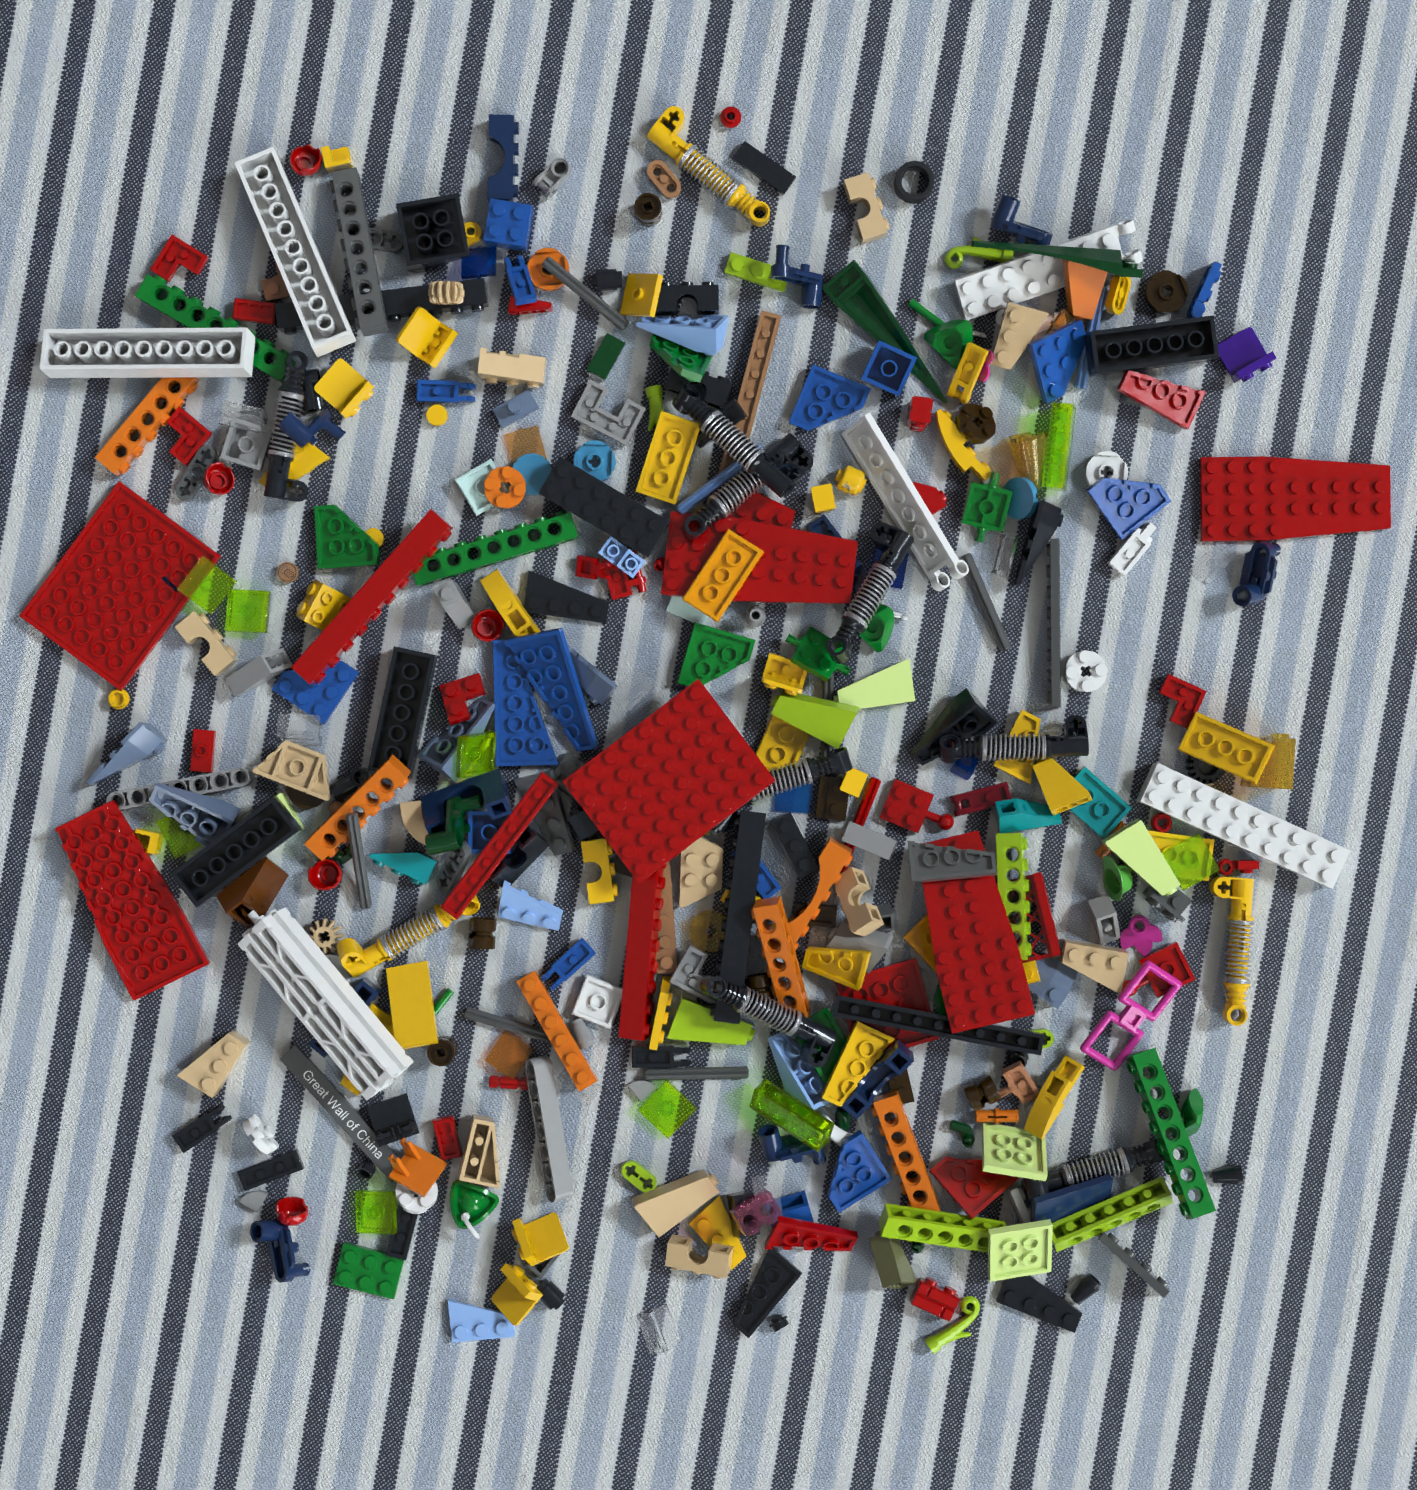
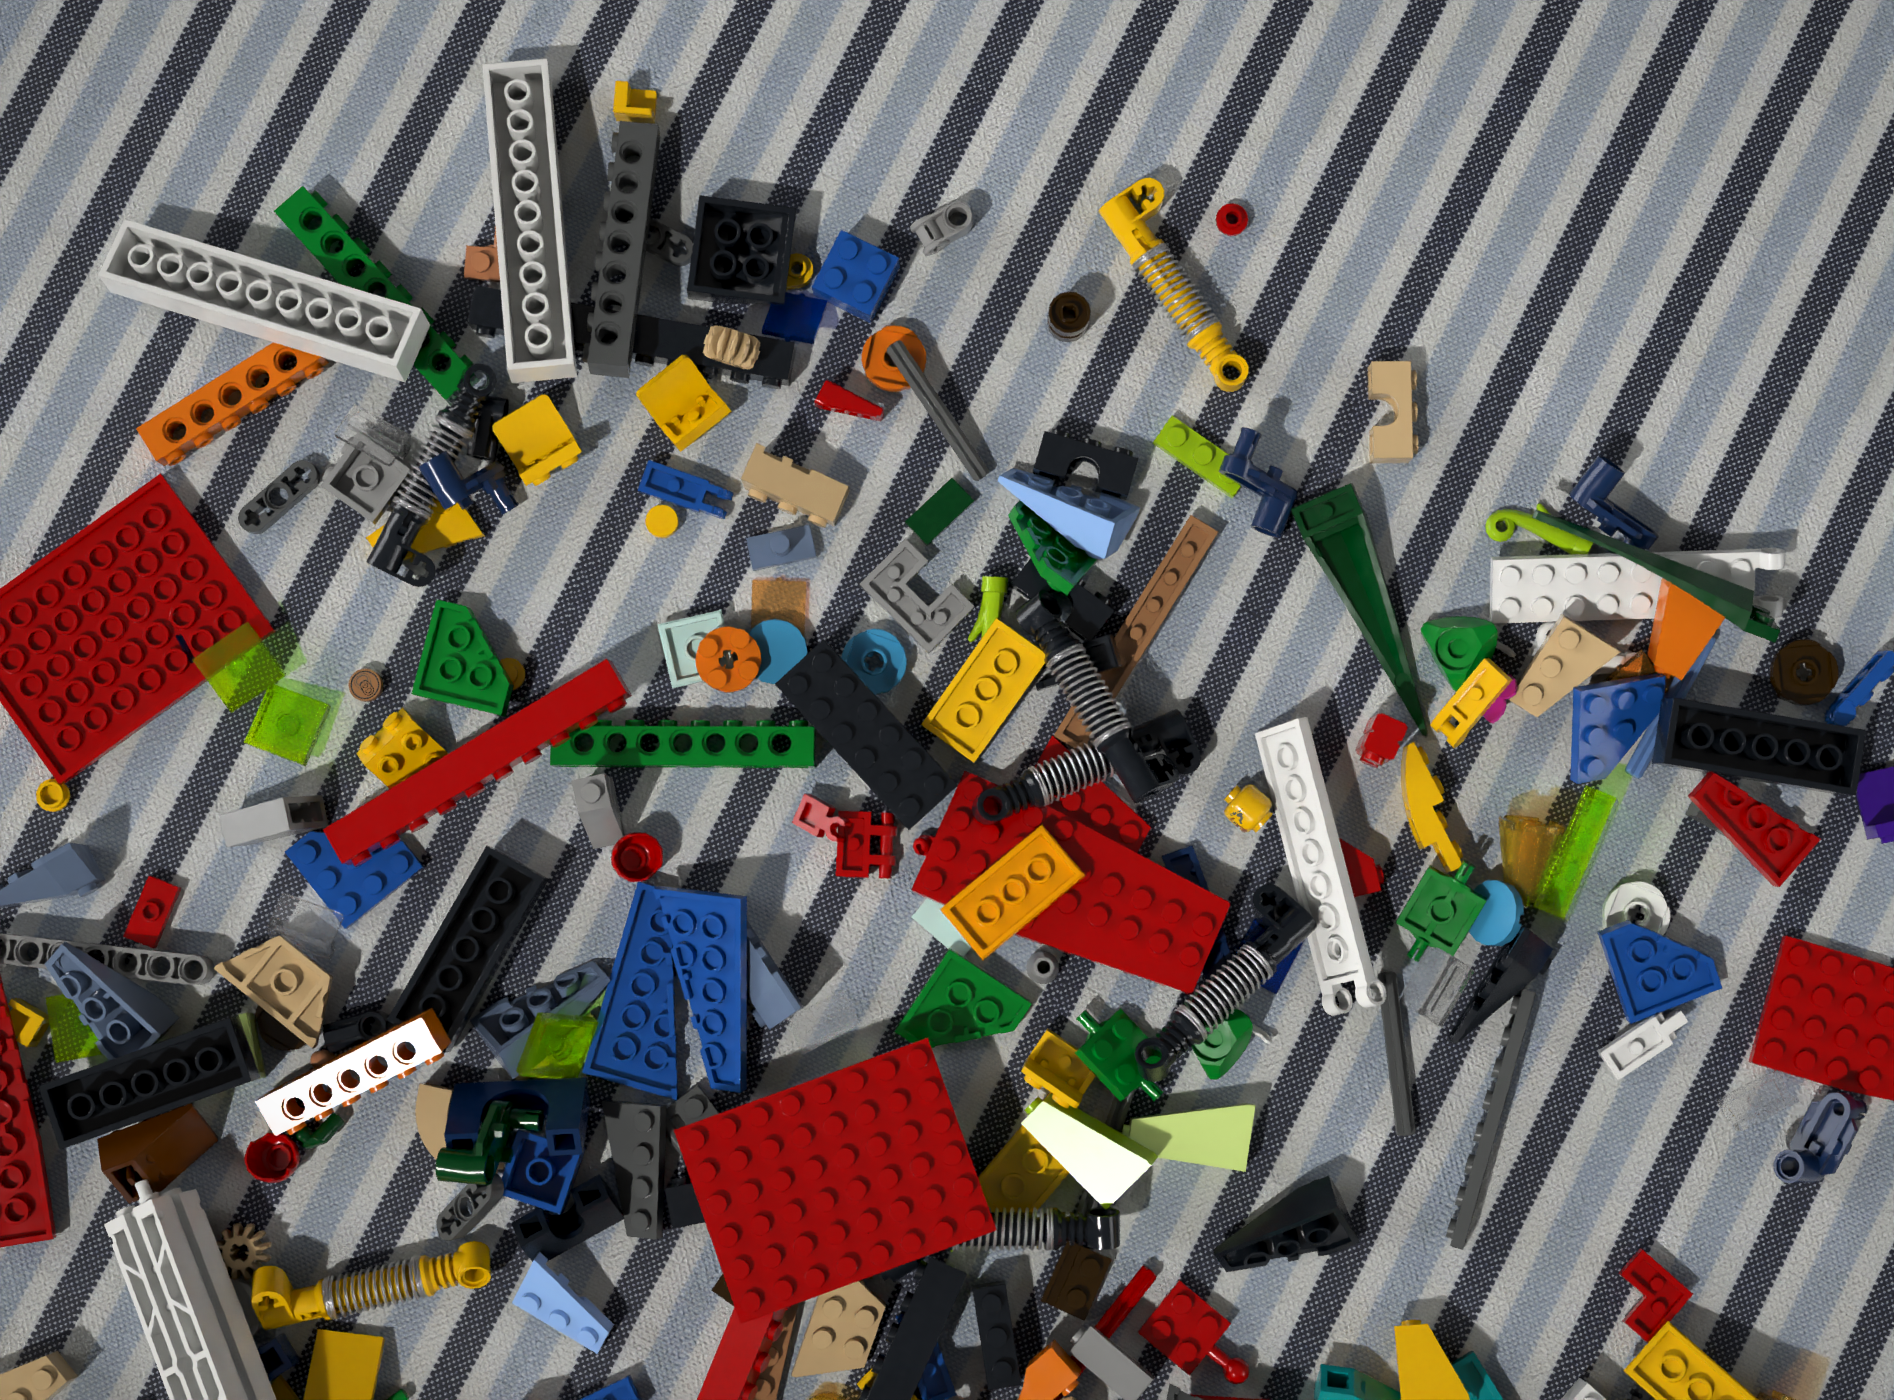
camera: 20 degrees right, 5 degrees down
(175, 254) = (355, 169): red plate -> none
(193, 435) = (292, 441): red plate -> none
(218, 479) = (308, 516): red hair -> none
(219, 656) = (224, 777): tan arch -> none
(254, 311) = (441, 287): red plate -> none
(305, 160) = (588, 93): red hair -> none
(358, 860) = (329, 1152): dark grey axle -> none
(413, 864) = (406, 1180): teal slope -> none
(455, 696) = (557, 945): red plate -> none
(482, 933) = (480, 1322): dark brown wheel -> none
(499, 845) = (548, 1197): red tile -> none
(503, 132) = (889, 139): dark blue arch -> none
(508, 604) = (678, 836): yellow slope -> none
(520, 281) = (846, 364): blue hinge -> none
(559, 600) = (754, 850): black wing -> none
(602, 889) = (685, 1311): yellow arch -> none
(607, 279) = (976, 400): black brick -> none
(621, 556) = (869, 816): light blue slope -> none
(641, 295) = (1019, 438): yellow plate -> none
(664, 180) = (1107, 280): medium nougat plate -> none
(710, 486) = (1035, 752): medium blue axle -> none
(764, 168) = (1258, 308): black tile -> none
(795, 800) = (1018, 1266): clear blue piece -> none
(823, 498) = (1198, 822): yellow panel -> none
(826, 399) = (1248, 675): blue plate -> none
(853, 782) = (1114, 1267): yellow panel -> none
(888, 368) = (1354, 659): blue brick -> none
(911, 198) = (1474, 371): black tyre -> none
(925, 312) = (1433, 593): green bar -> none
(964, 767) = (1291, 1291): clear blue slope -> none
(980, 798) = (1300, 1351): dark red plate -> none
(984, 419) = (1474, 774): dark brown plate -> none
(1020, 769) = (1381, 1292): yellow wing -> none
(1039, 746) = (1381, 1292): black piece -> none
(1097, 669) = (1498, 1201): white plate -> none
(1117, 294) = (1729, 655): yellow plate -> none

